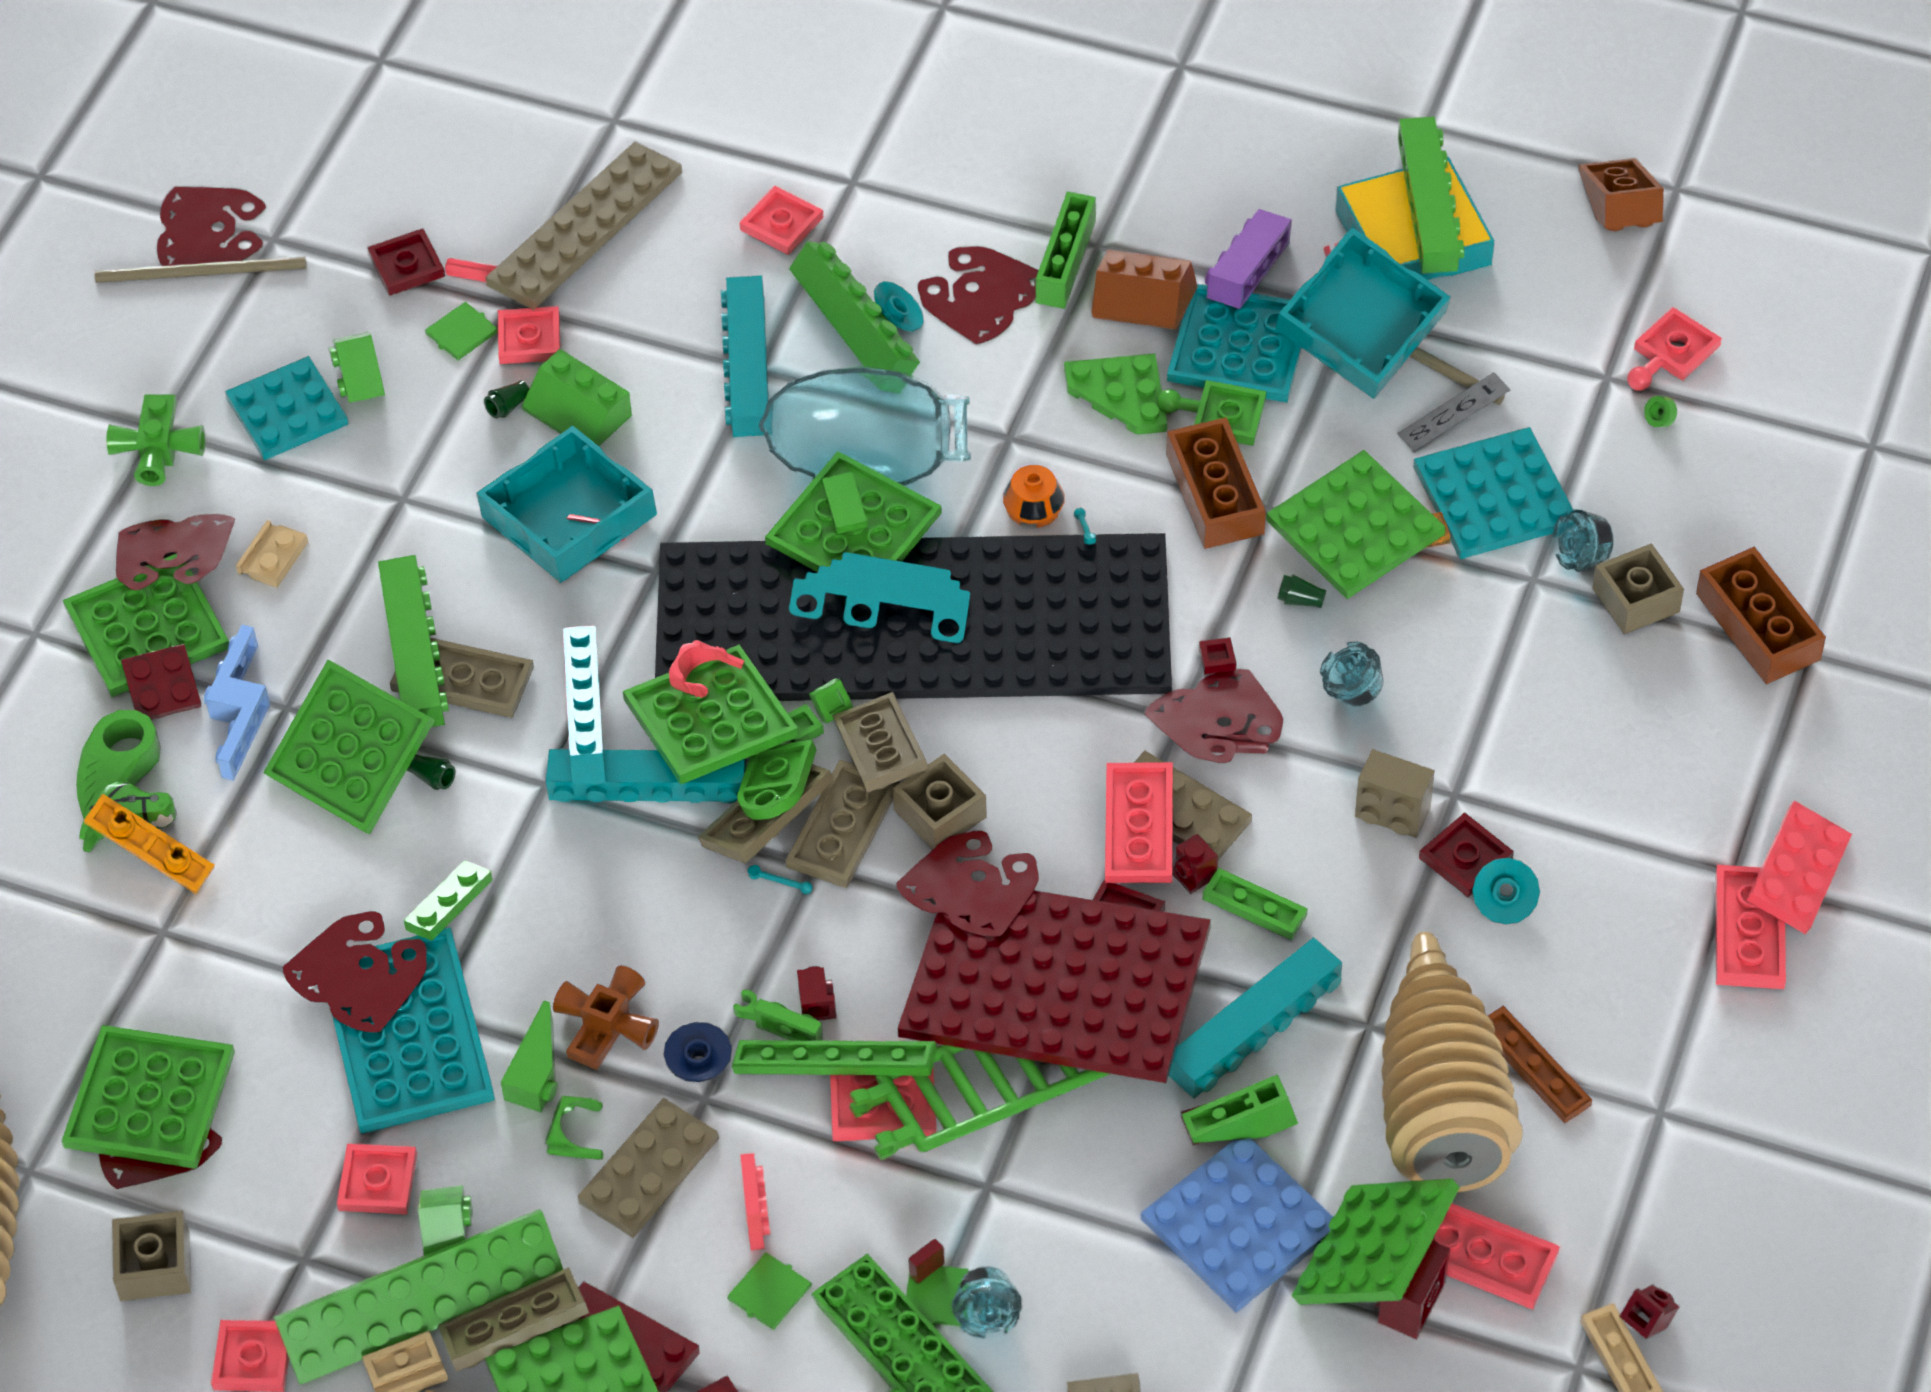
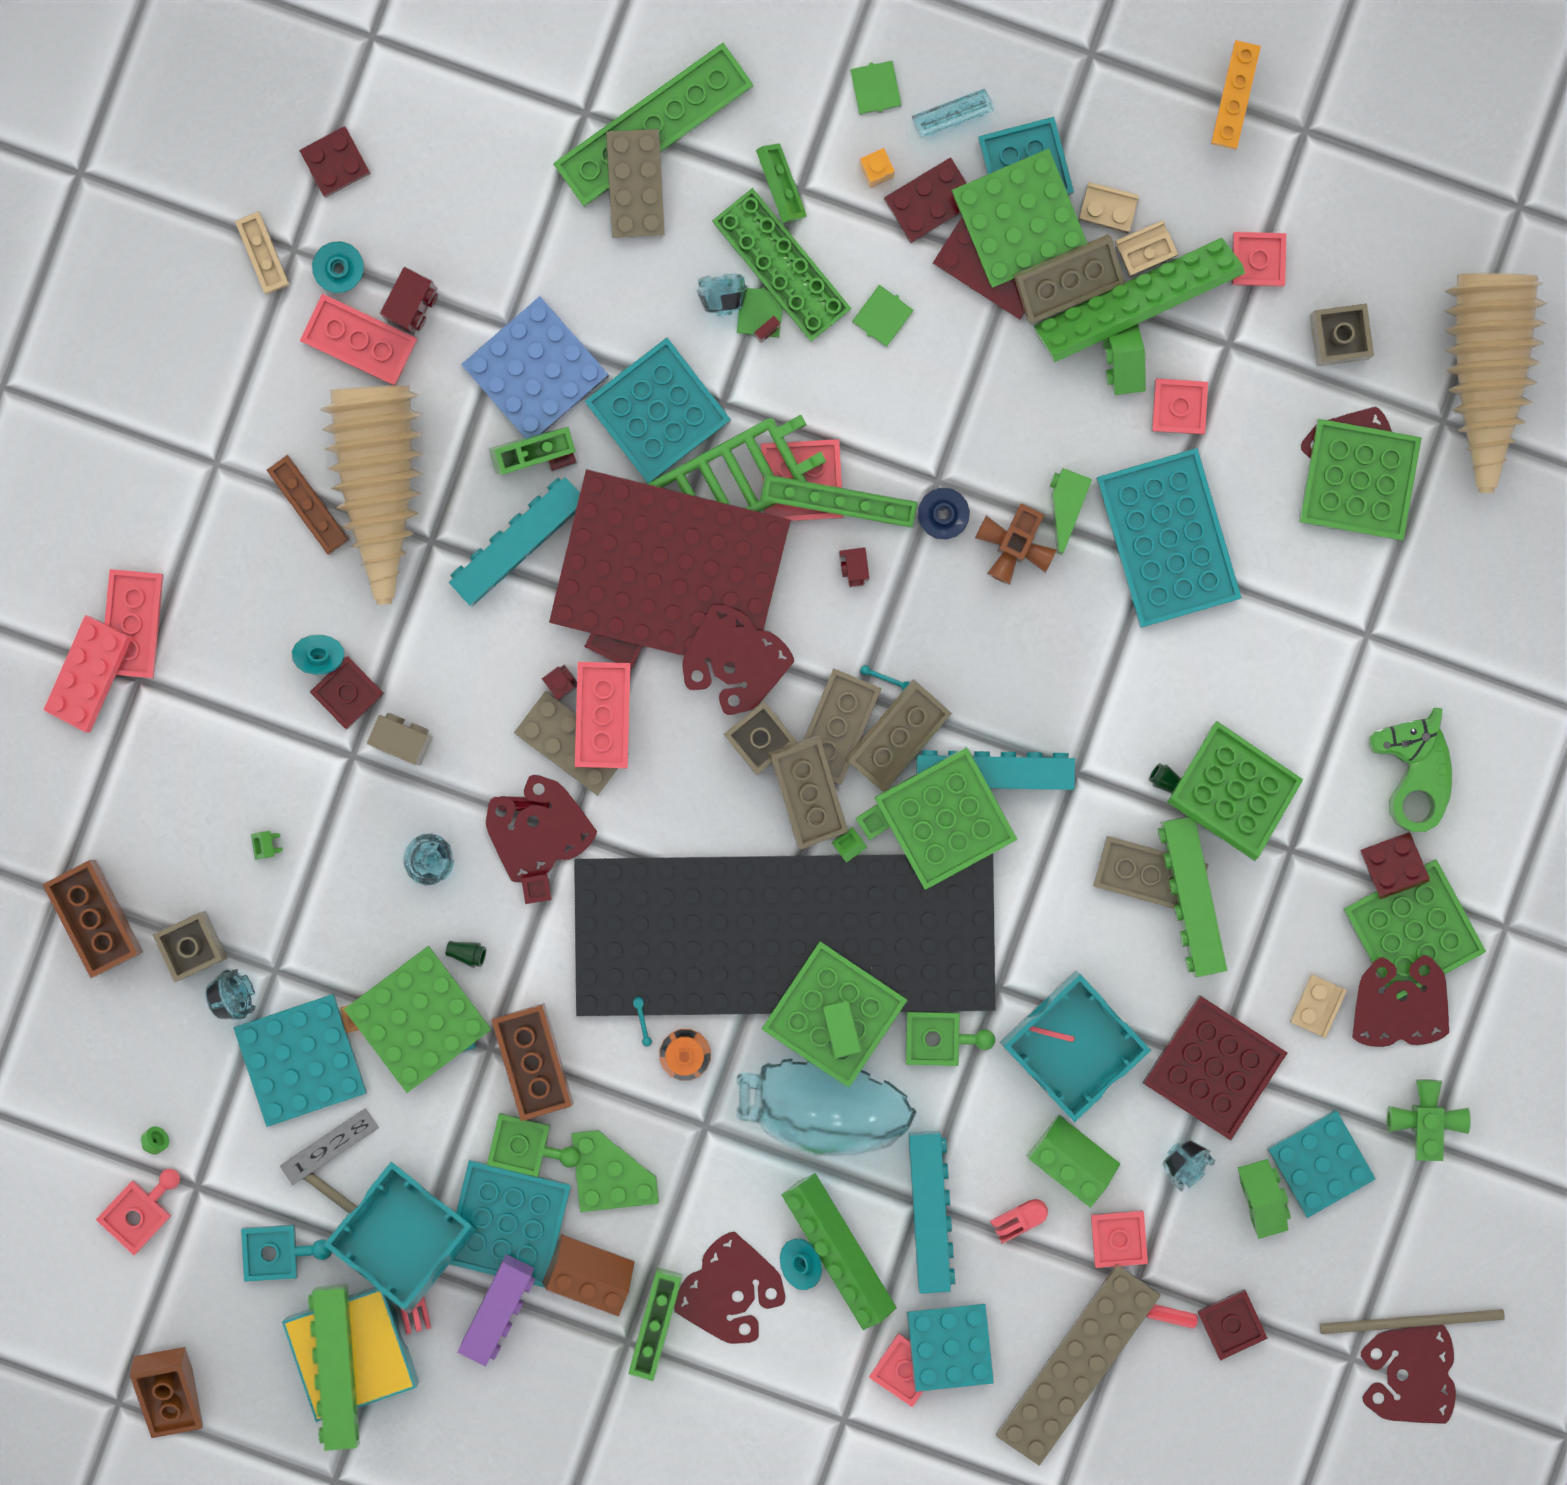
camera: 175 degrees right, 35 degrees up
(149, 844) = (1385, 700): light orange plate -> none
(237, 702) = (1331, 848): light blue bracket -> none
(345, 984) = (1220, 575): dark red piece -> none
(402, 492) = (1214, 1067): none -> dark red plate
(443, 394) = (1187, 1163): none -> clear light blue cone
(447, 900) = (1145, 653): plate -> none
(461, 330) = (1178, 1250): bright green piece -> none
(504, 400) = (1134, 1167): dark green cone -> none
(556, 1140) = (1049, 440): bright green helmet -> none
(584, 705) = (1048, 828): brick -> none
(643, 349) = (1020, 1219): none -> coral arm
(648, 1167) = (976, 418): dark tan plate -> none
(690, 657) = (965, 867): coral helmet -> none
(720, 504) = (947, 1050): none -> bright green plate
(729, 236) = (950, 1347): none -> teal plate
(755, 1201) = (894, 365): coral plate -> none
(775, 779) = (890, 755): bright green plate -> none
(778, 1019) = (884, 544): bright green plate -> none
(879, 580) = (805, 952): teal piece -> none
(1073, 1170) = (657, 410): none -> teal plate
(1255, 904) = (514, 647): bright green plate -> none
(1375, 1242) = (434, 327): bright green plate -> none
(1499, 323) = (284, 1241): none -> teal plate
(1518, 1324) = (328, 258): none -> teal dish
(1557, 694) = (263, 844): none -> bright green tile
(1653, 1303) = (238, 285): dark red brick -> none

